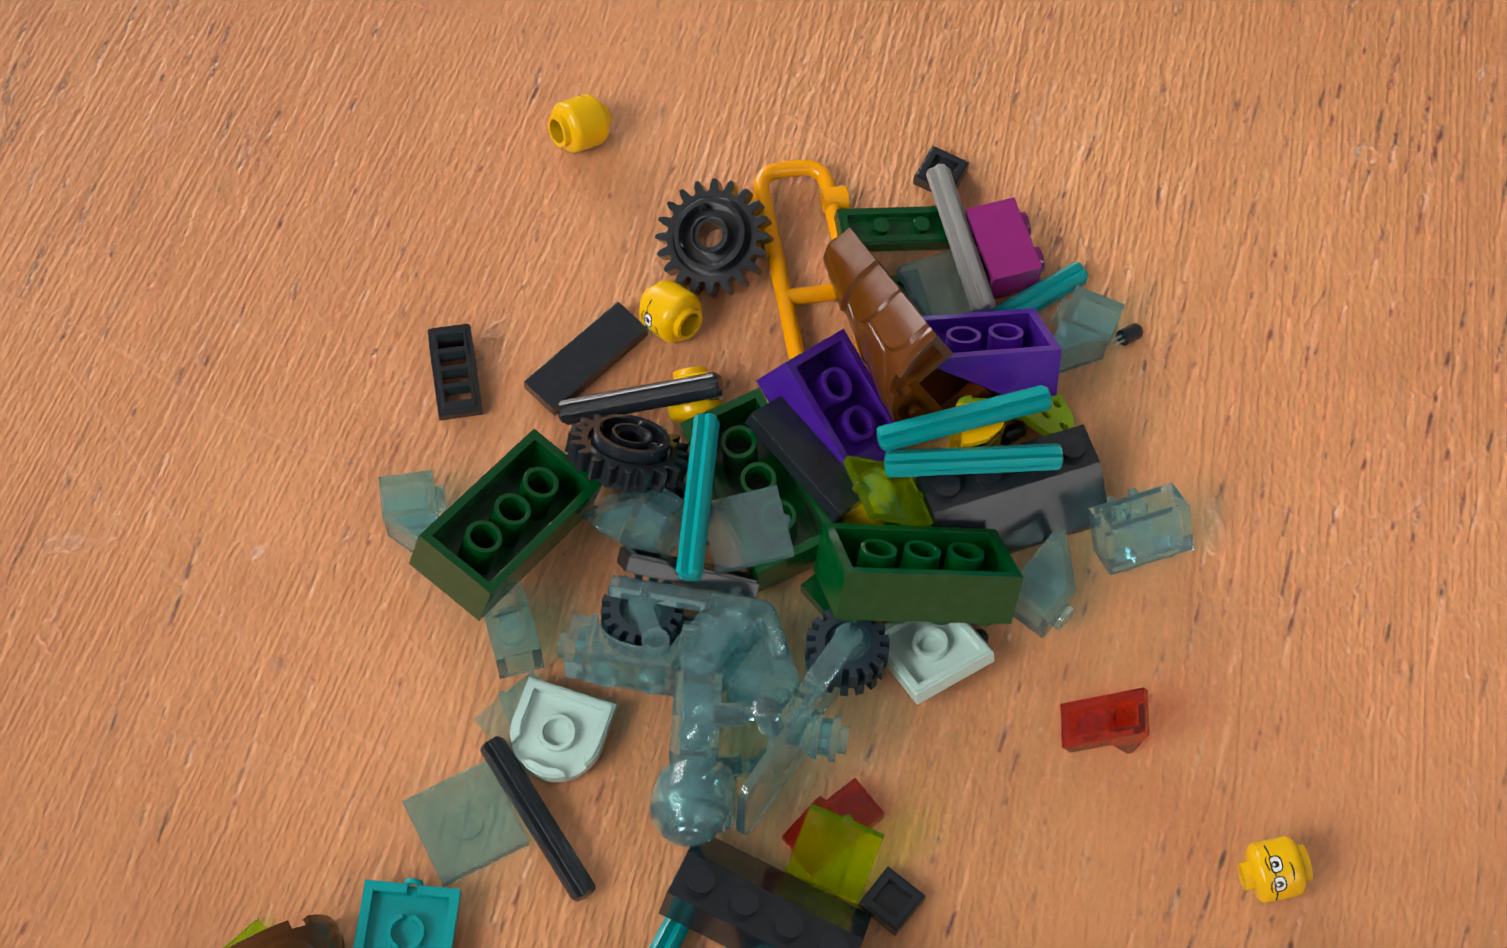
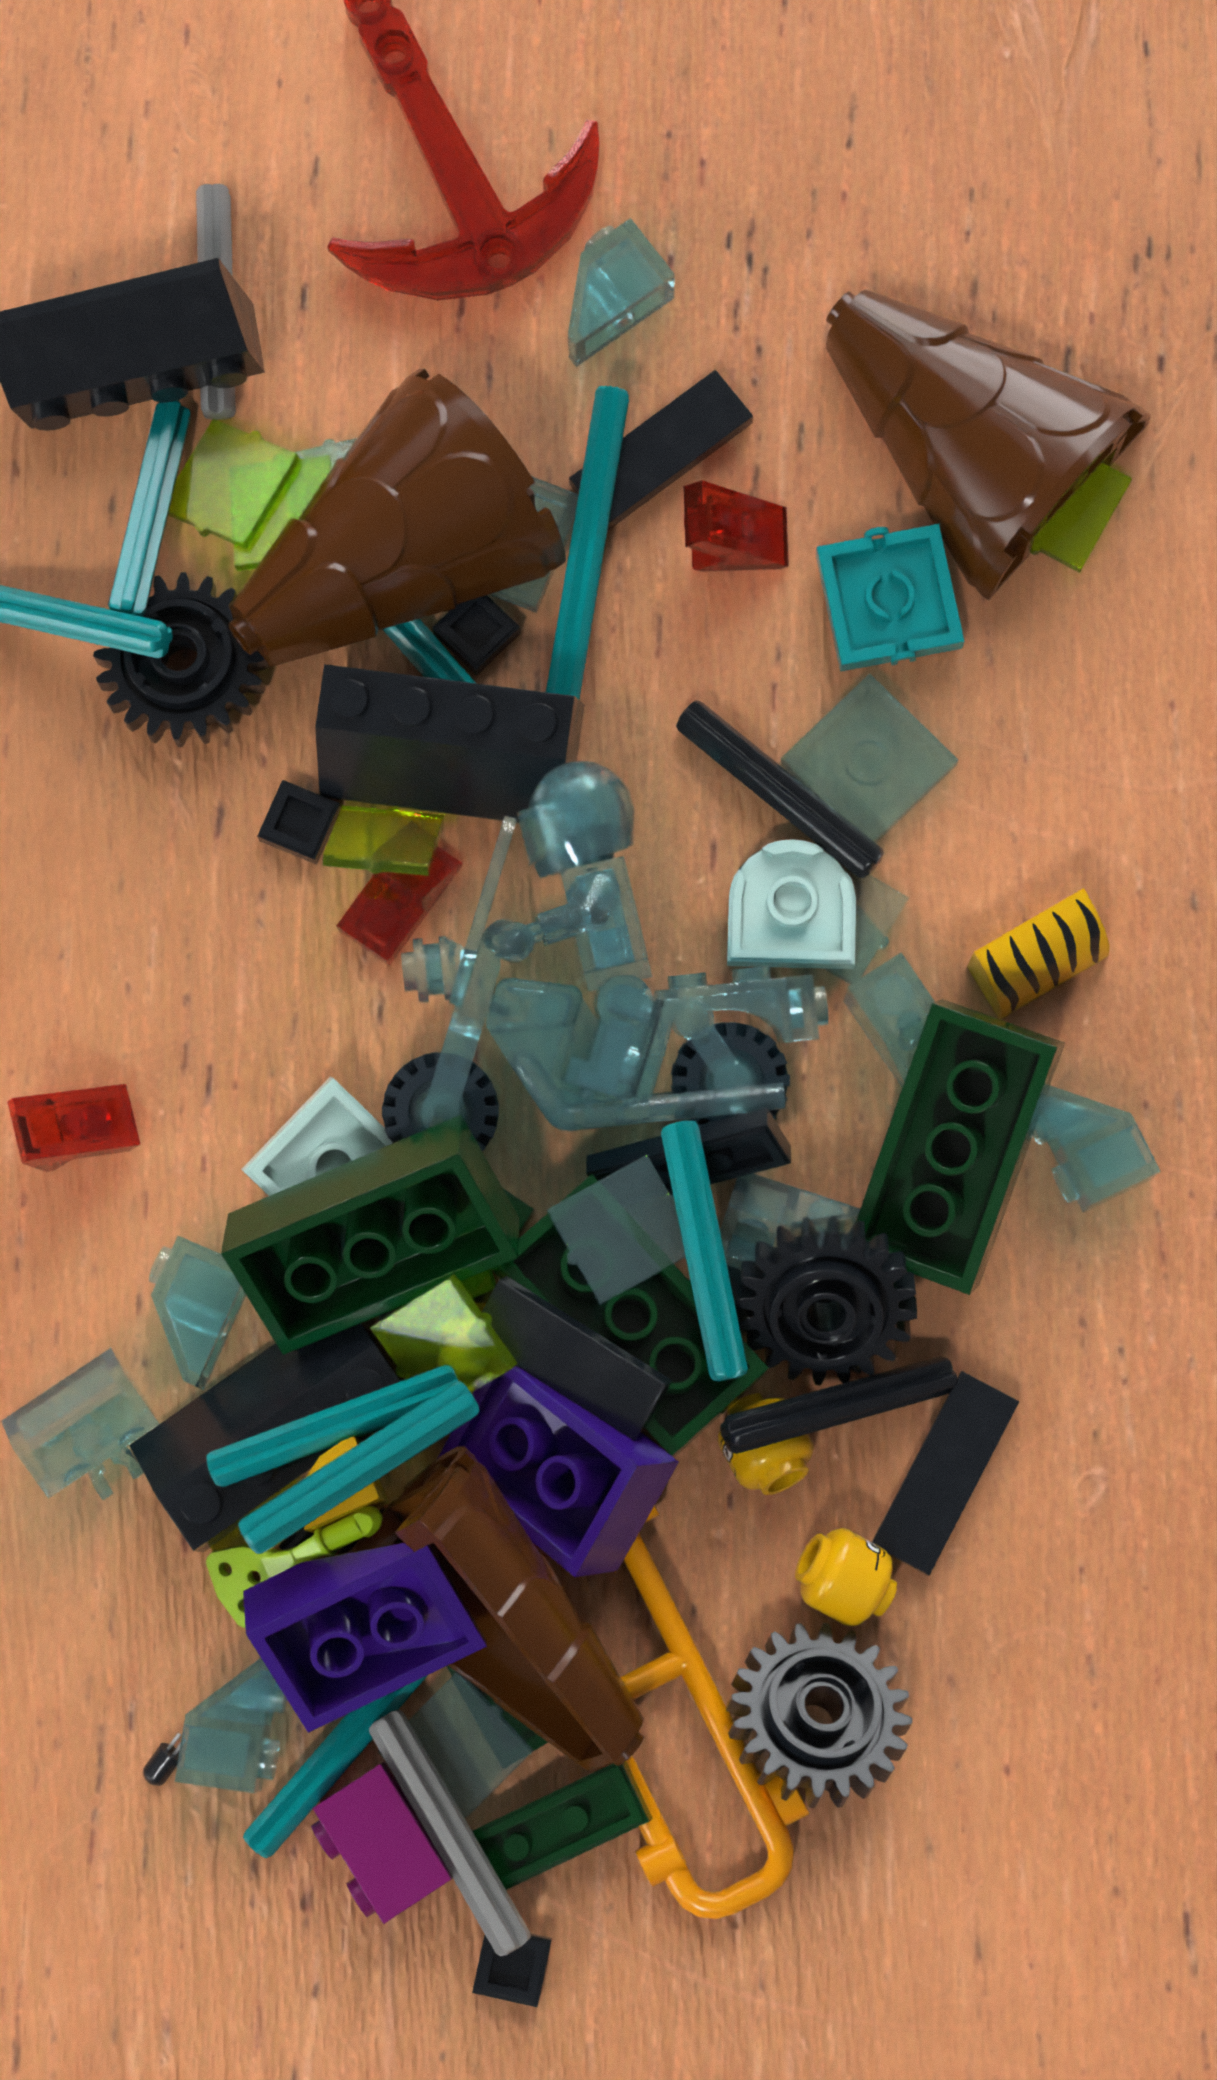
camera: 170 degrees right, 15 degrees up
(400, 651) = (1040, 954): none -> yellow brick
(448, 345) = (1142, 1375): black slope -> none
(579, 123) = (1092, 1868): yellow head -> none

